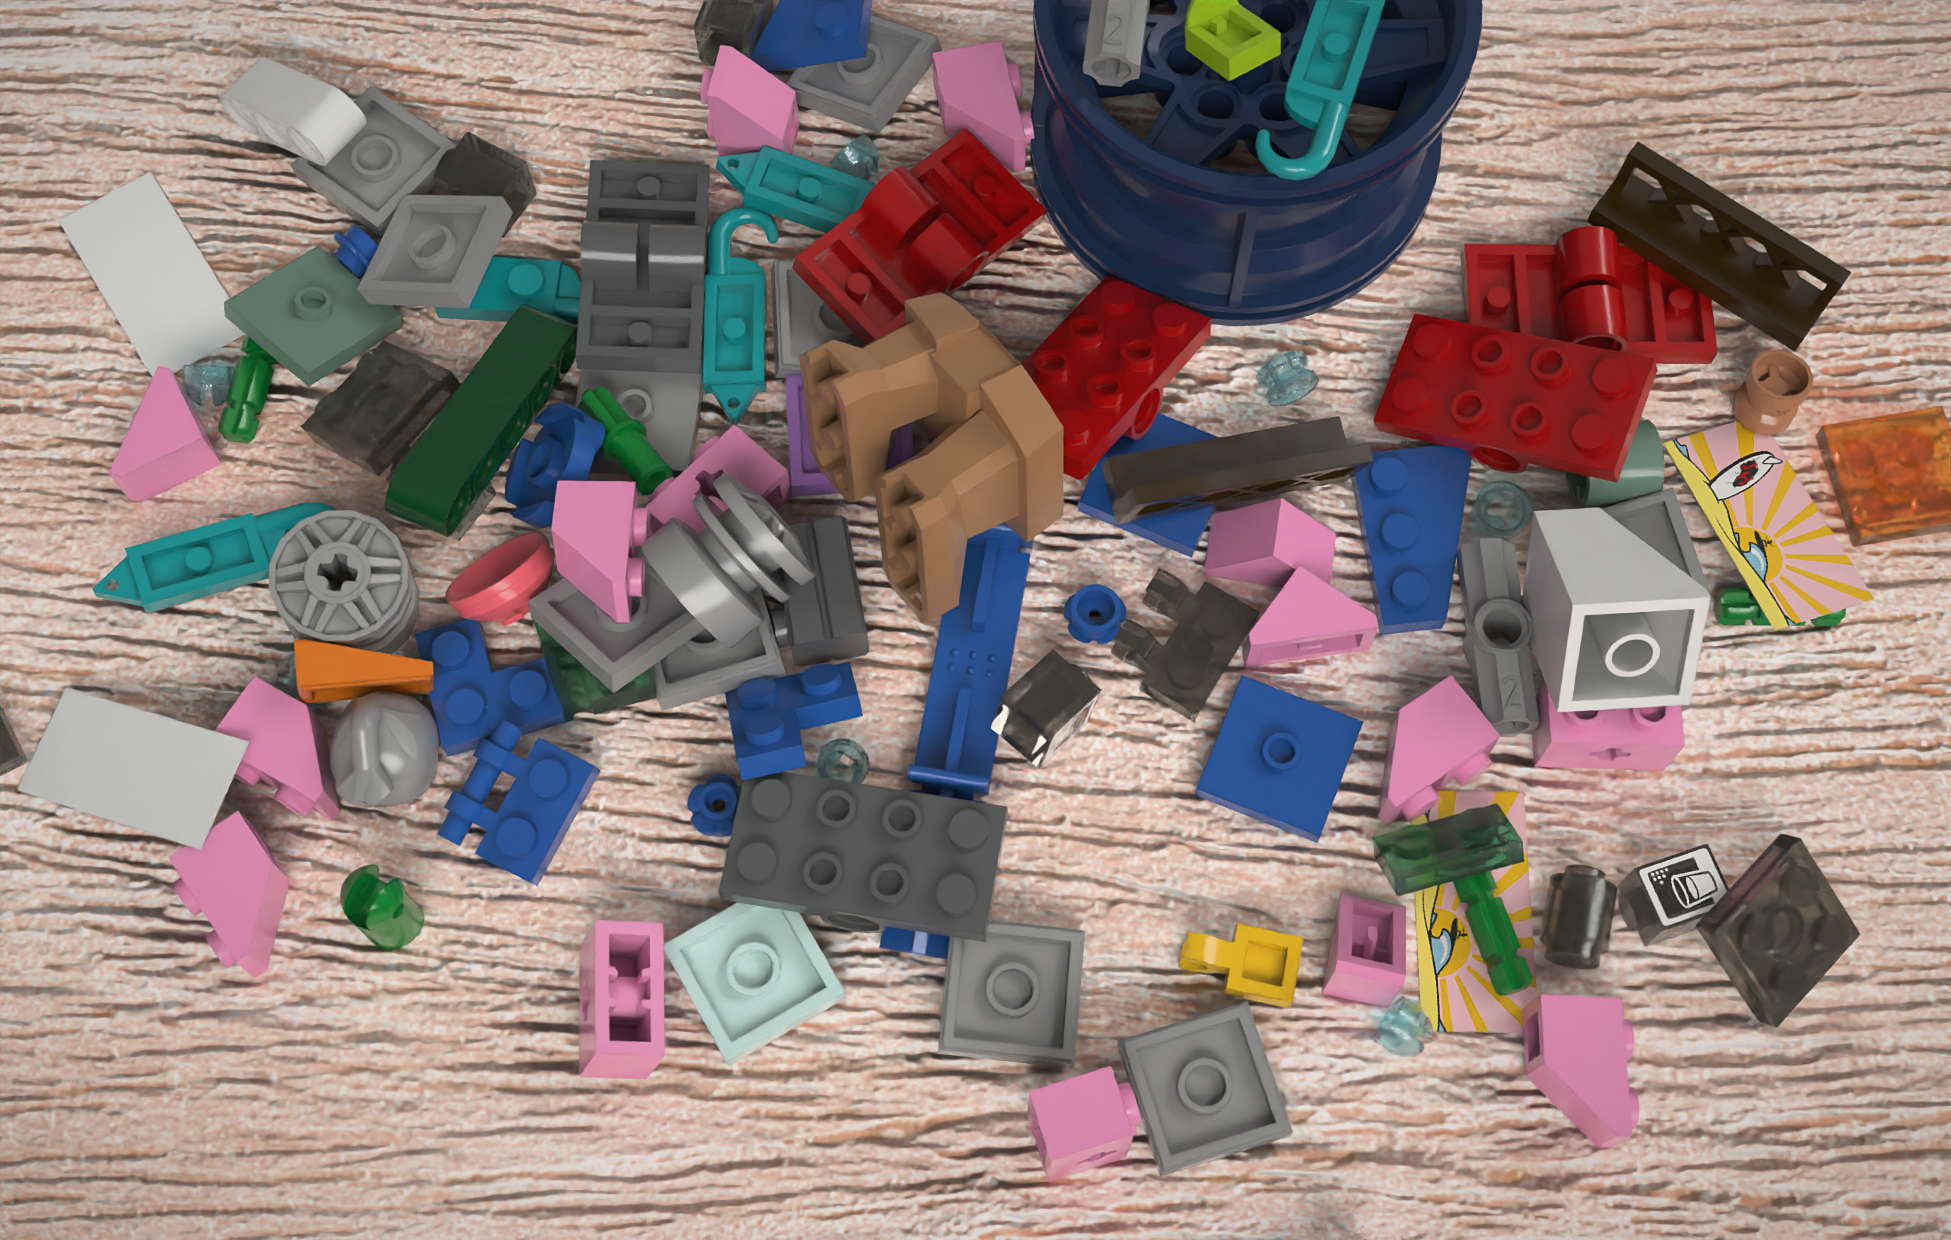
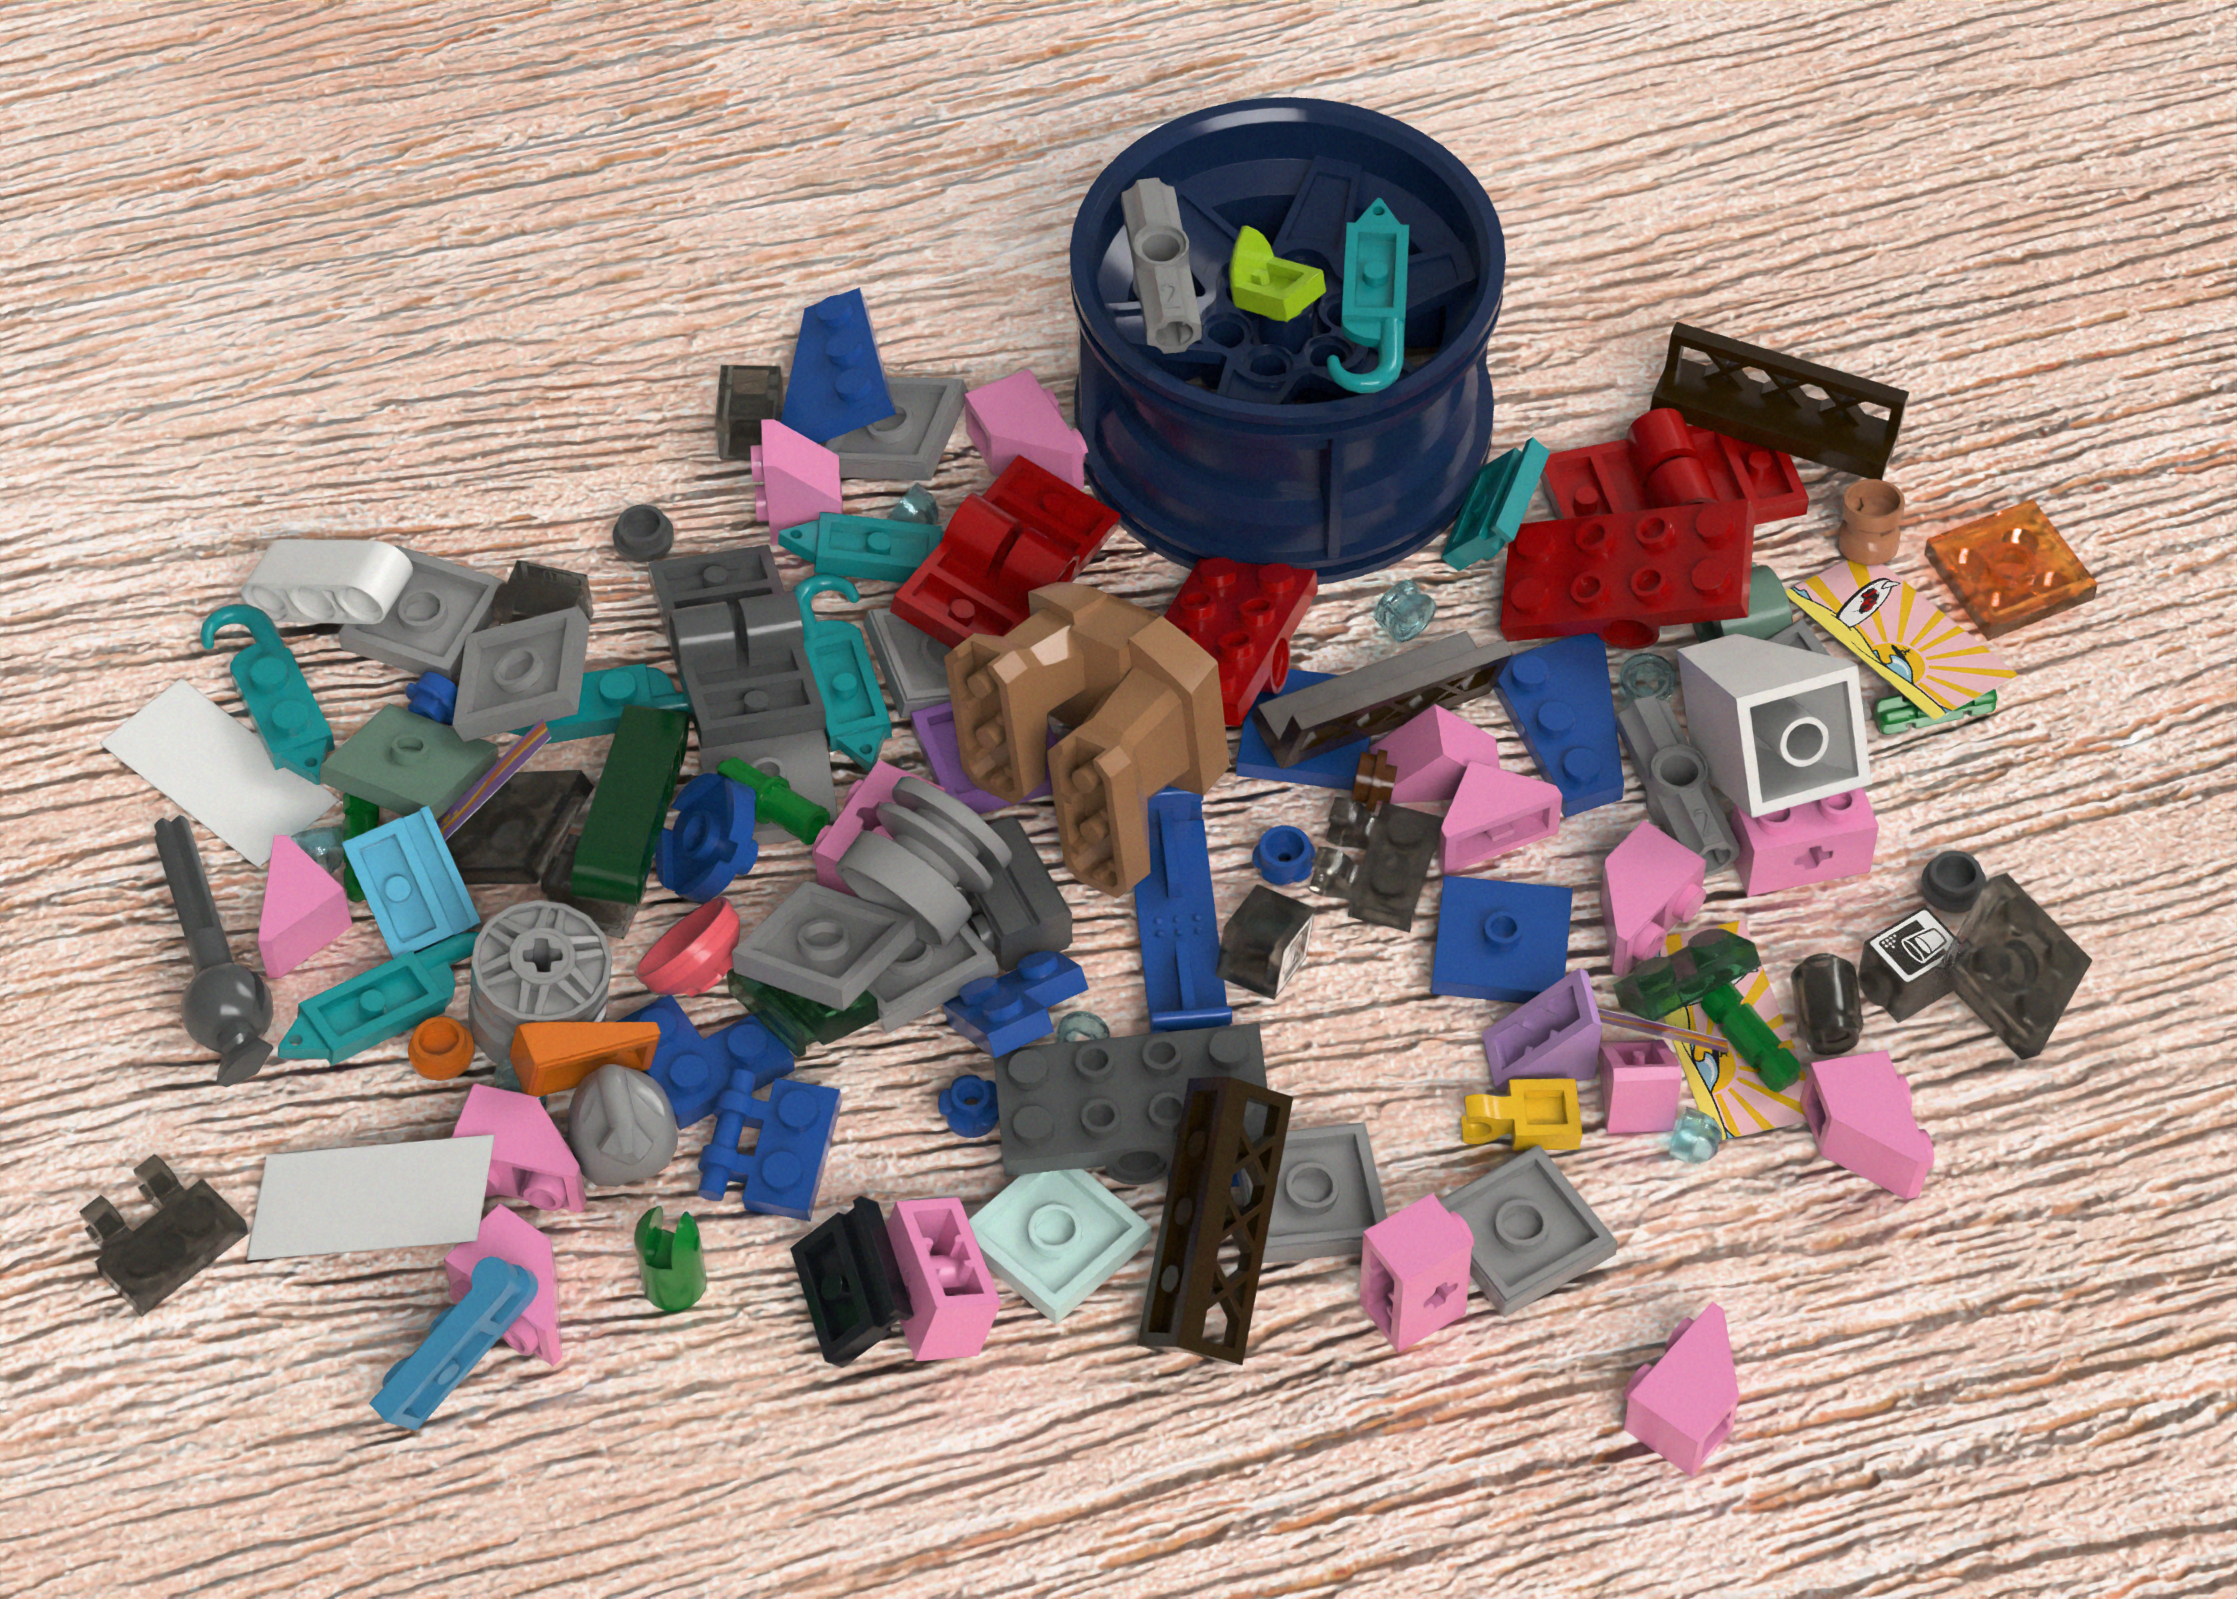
camera: 15 degrees left, 15 degrees down
(68, 527) = (224, 1002): none -> dark grey piece
(150, 952) = (456, 1343): none -> dark azure plate
(222, 208) = (274, 693): none -> teal plate
(251, 620) = (441, 1049): none -> orange plate
(270, 444) = (411, 883): none -> medium azure plate
(360, 365) = (493, 779): none -> medium lavender sticker
(543, 977) = (851, 1282): none -> black plate
(598, 540) = (788, 882): bright pink slope -> none
(601, 125) = (643, 534): none -> dark grey plate
(880, 1011) = (1192, 1225): none -> dark brown fence
(1201, 559) = (1373, 780): none -> reddish brown plate
(1287, 883) = (1548, 1036): none -> lavender slope
(1362, 878) = (1663, 1030): none -> medium lavender sticker
(1407, 287) = (1495, 505): none -> teal plate
(1743, 810) = (1953, 881): none -> dark grey plate

